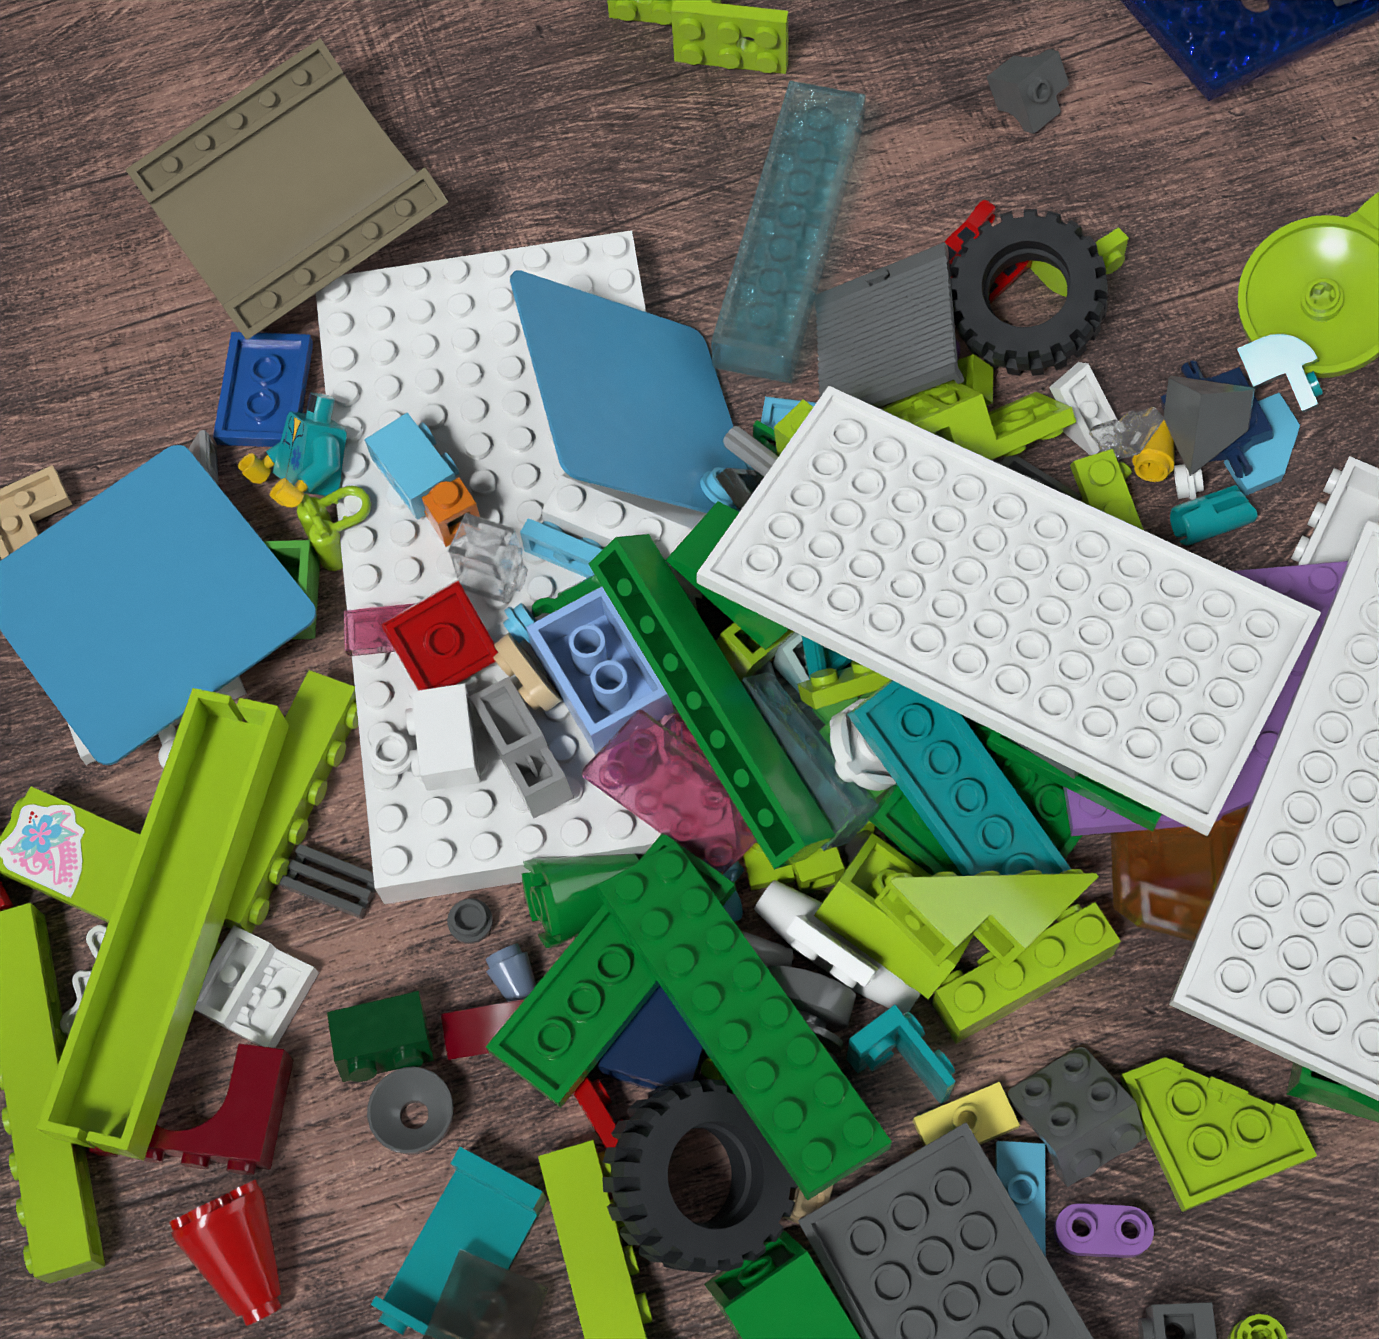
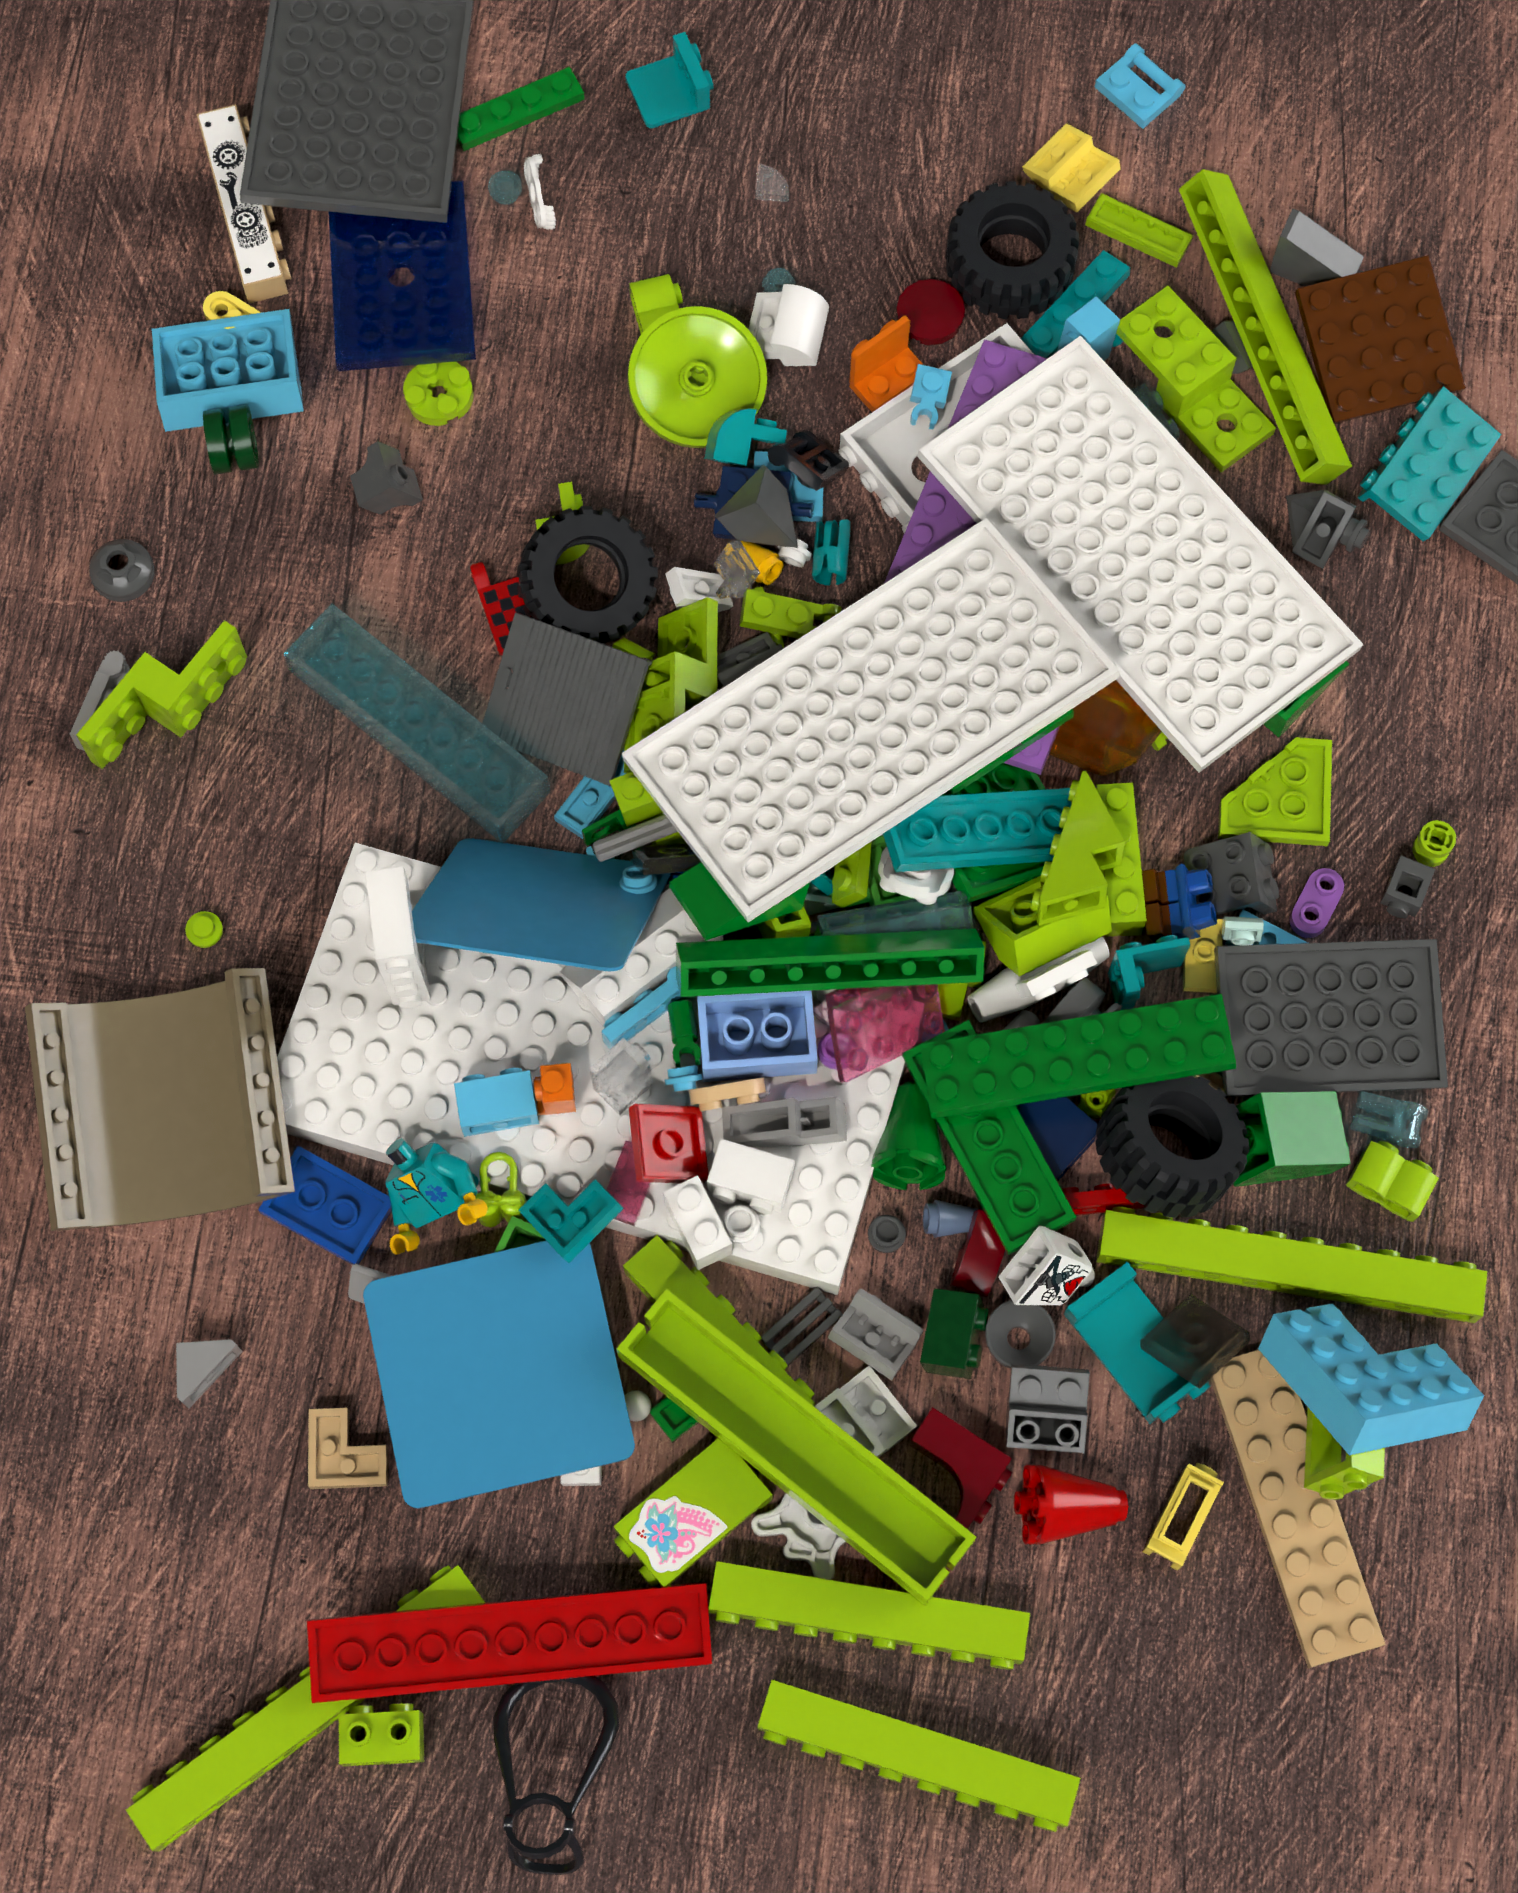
camera: 70 degrees left, 5 degrees up
(56, 358) = (201, 1365): none -> light grey slope
(316, 588) = (571, 1226): none -> teal plate
(336, 1179) = (1047, 1408): none -> dark grey brick
(347, 957) = (876, 1334): none -> light grey bracket
(367, 707) = (697, 1222): none -> white brick
(491, 164) = (204, 929): none -> lime plate
(492, 1105) = (1047, 1270): none -> white torso
(497, 258) = (394, 939): none -> white arch
(1003, 1058) = (1173, 904): none -> blue hips
(1003, 1143) = (1242, 930): none -> light aqua slope
(1162, 75) = (445, 407): none -> lime plate
(1294, 452) = (813, 469): none -> black plate

